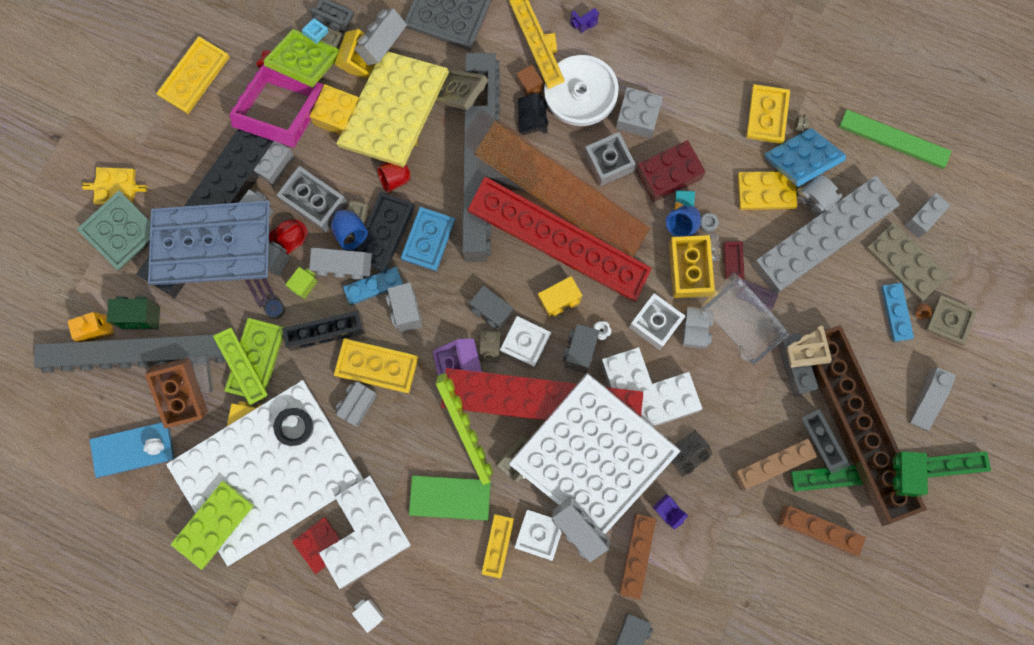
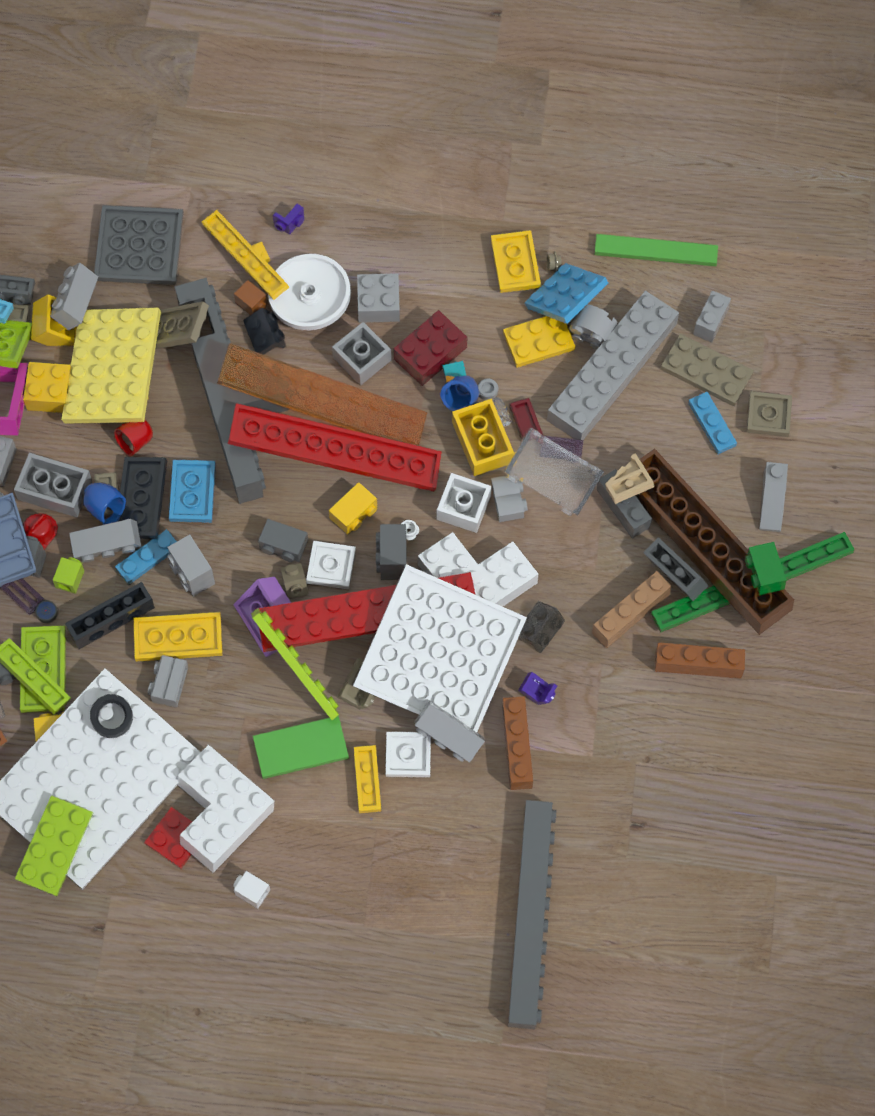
camera: 20 degrees left, 10 degrees down
(923, 307) = (740, 418): dark orange hinge -> none

